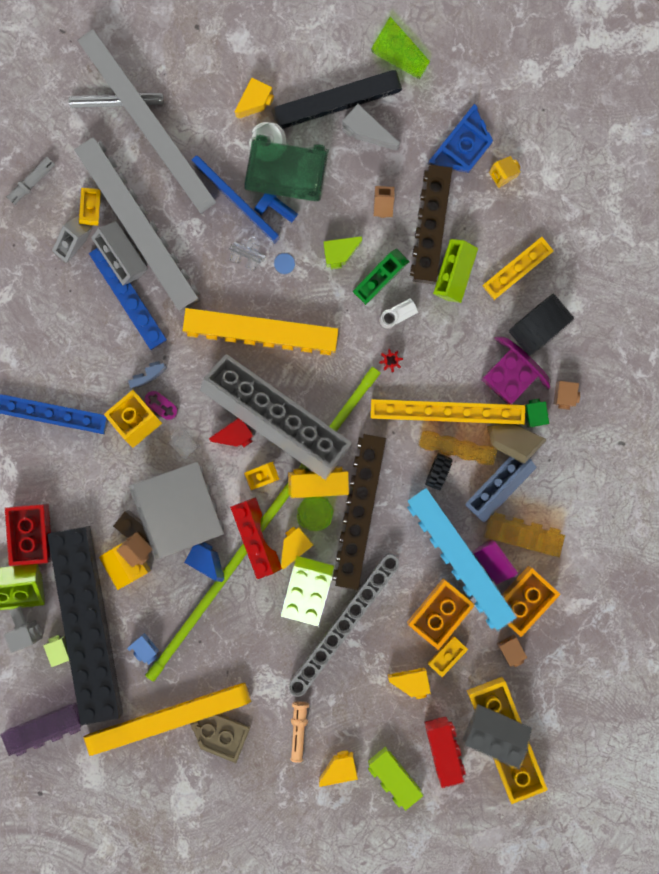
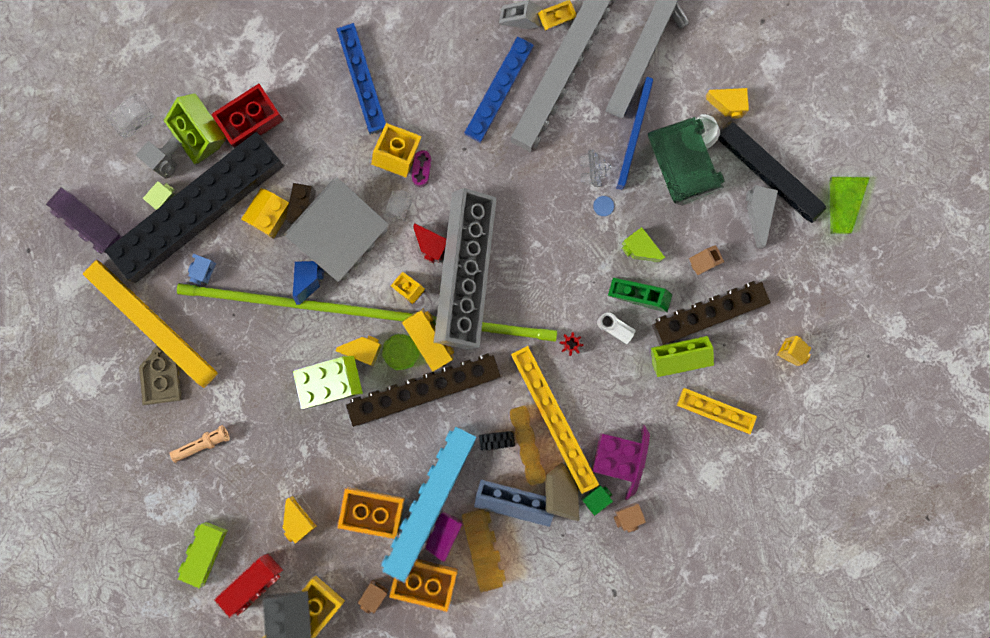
camera: 65 degrees right, 5 degrees down
(119, 253) = (532, 60): light grey brick -> none
(134, 550) = (281, 212): medium nougat brick -> none
(152, 373) = (445, 145): sand blue slope -> none
(248, 520) = (362, 296): red arch -> none
(260, 330) = (533, 216): yellow brick -> none
(276, 204) = (651, 164): blue piece -> none
(339, 769) = (184, 500): yellow slope -> none
(341, 634) = (306, 431): light grey beam -> none
(447, 656) = (337, 541): yellow plate -> none
(464, 144) = (798, 303): blue wing -> none
(541, 324) = (679, 458): black tyre -> none

